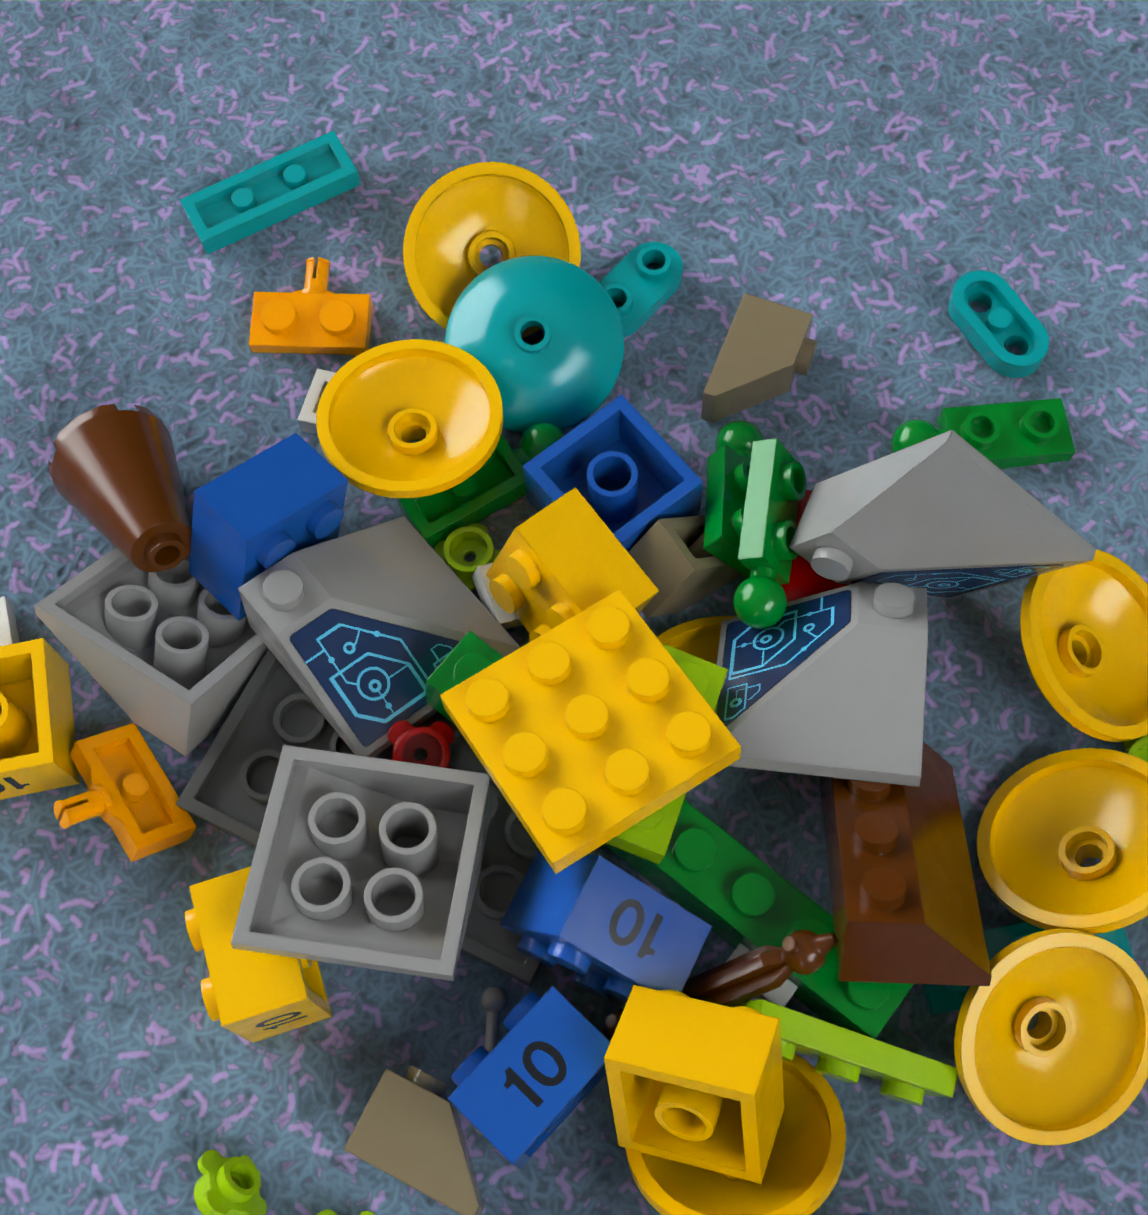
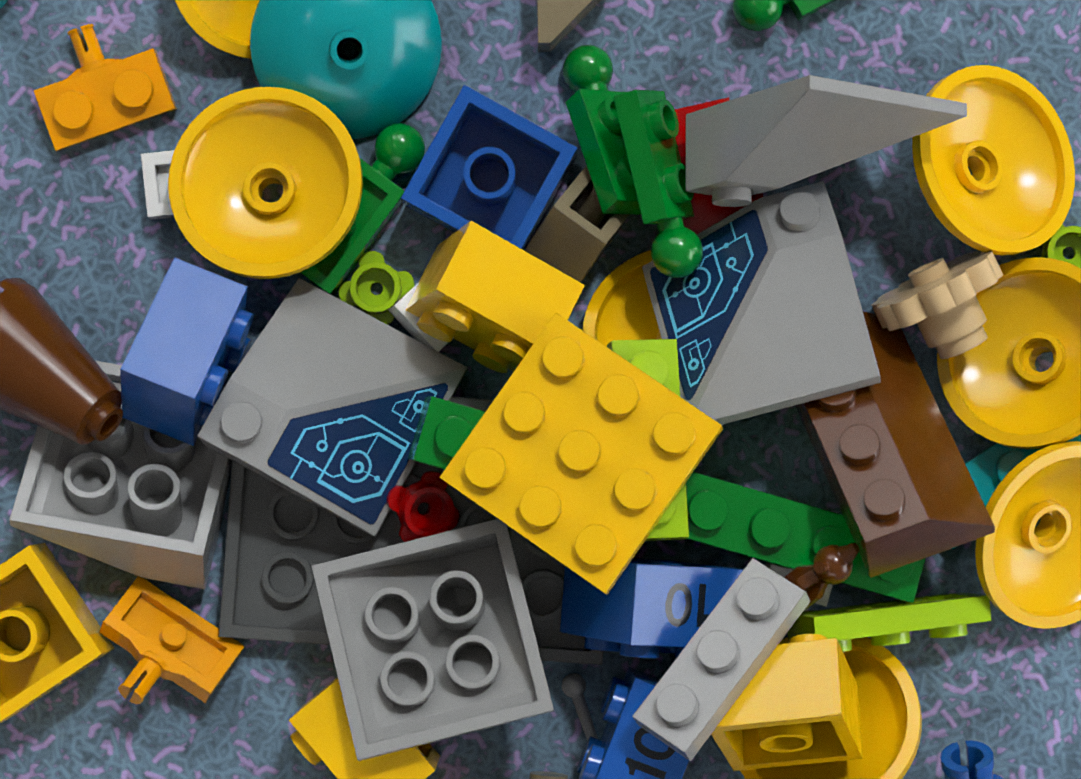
camera: 25 degrees left, 20 degrees up
(647, 994) = (721, 659): none -> light grey plate
(1007, 754) = (943, 302): none -> tan plant

